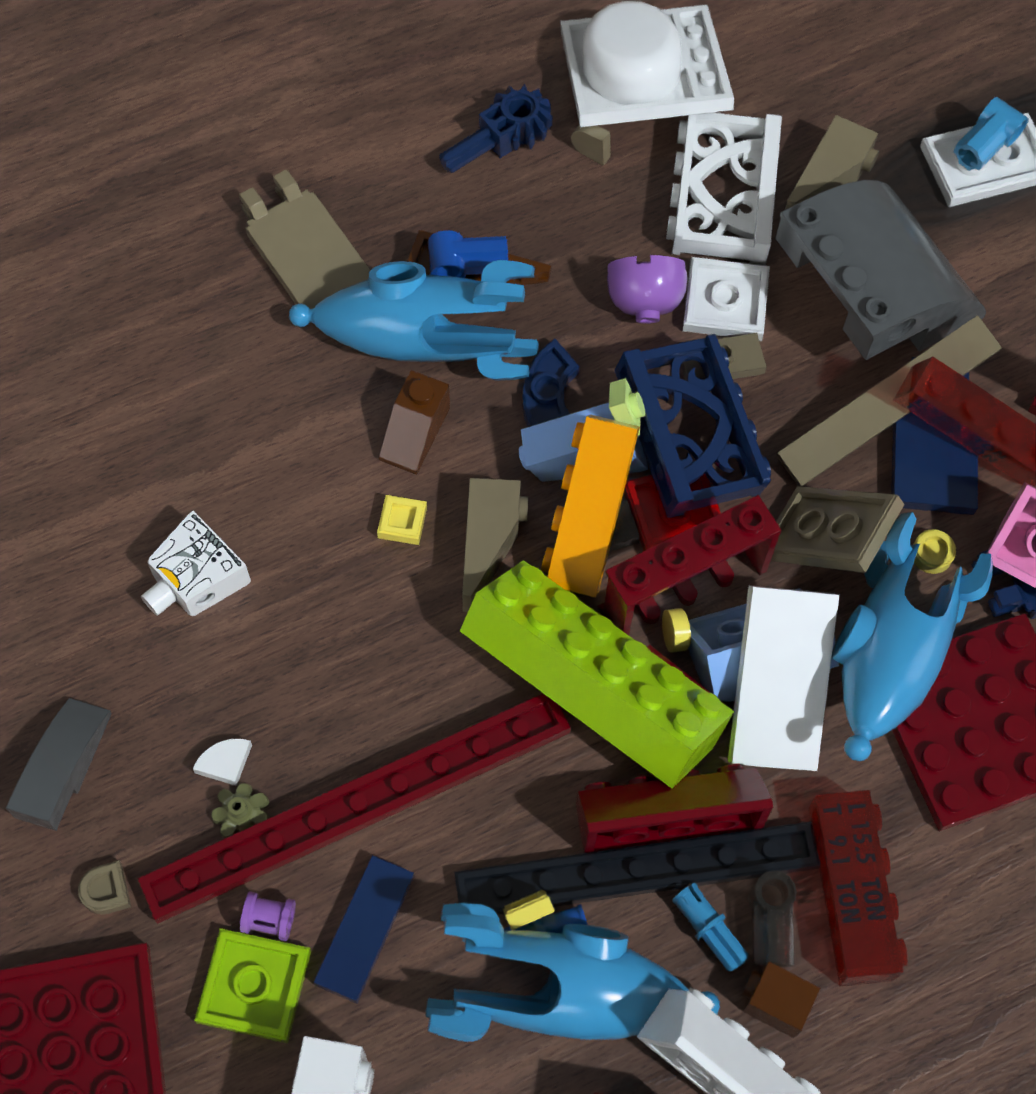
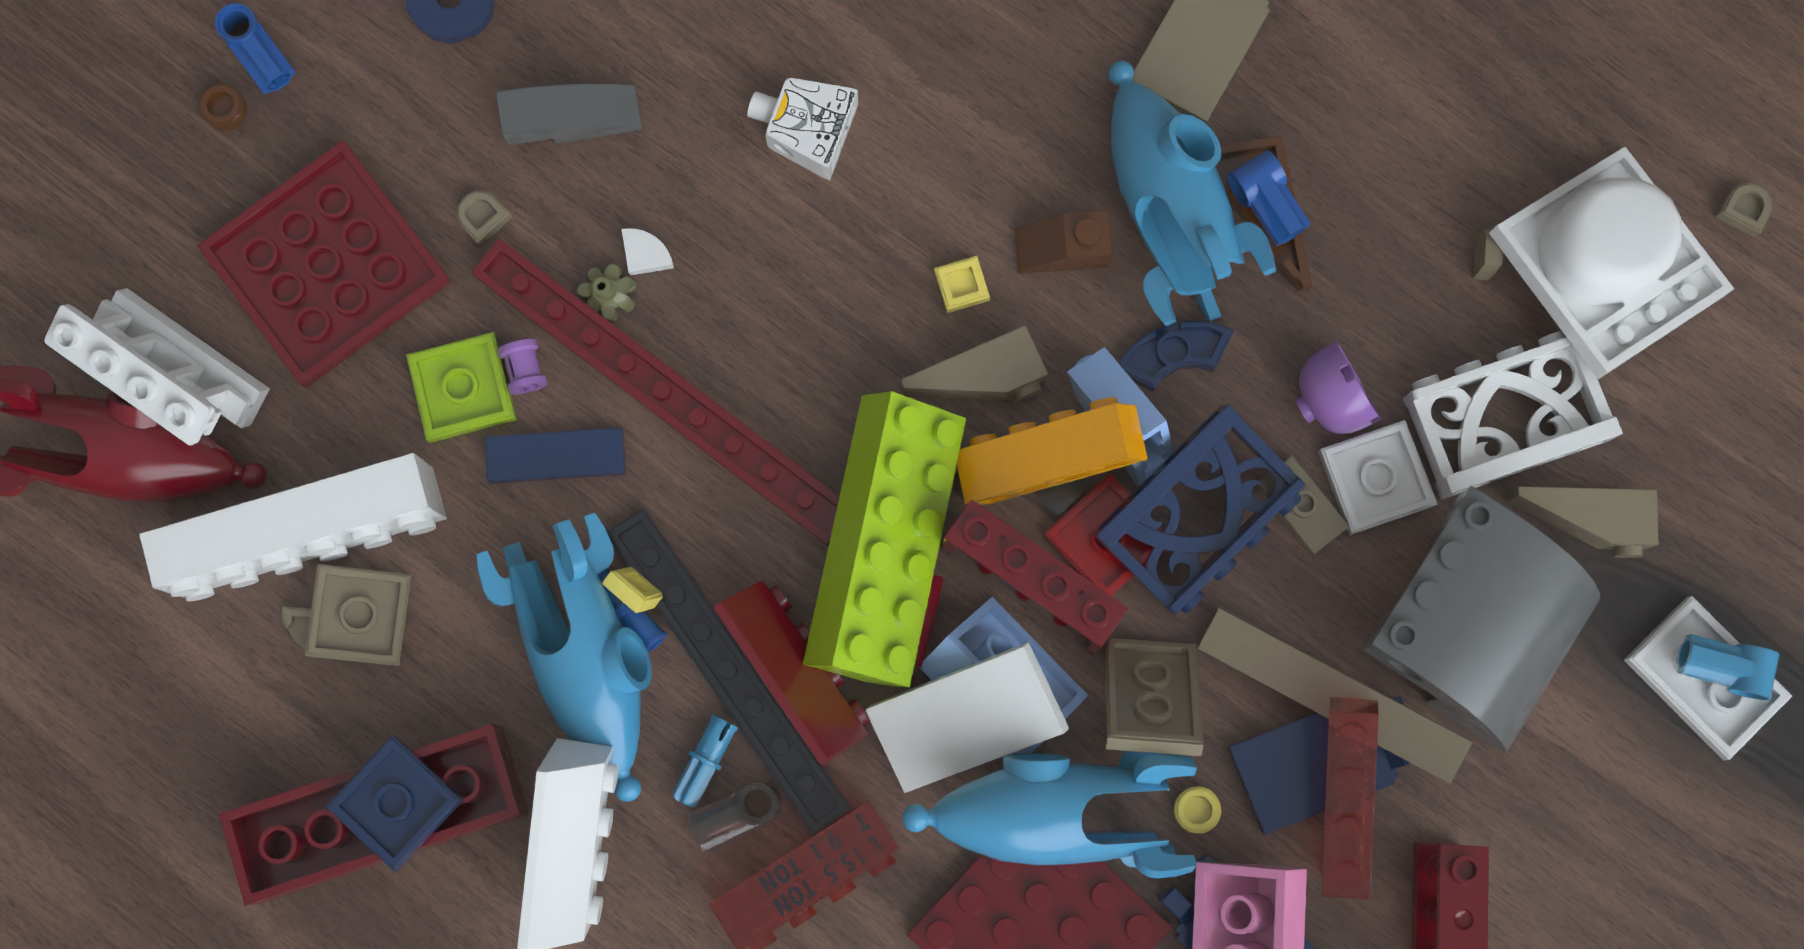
camera: 65 degrees right, 15 degrees up
(502, 128) = (1449, 154): dark blue gear -> none
(624, 404) = (1166, 434): yellowish green plate -> none
(676, 630) = (977, 596): light yellow tile -> none
(779, 999) = (666, 851): reddish brown brick -> none

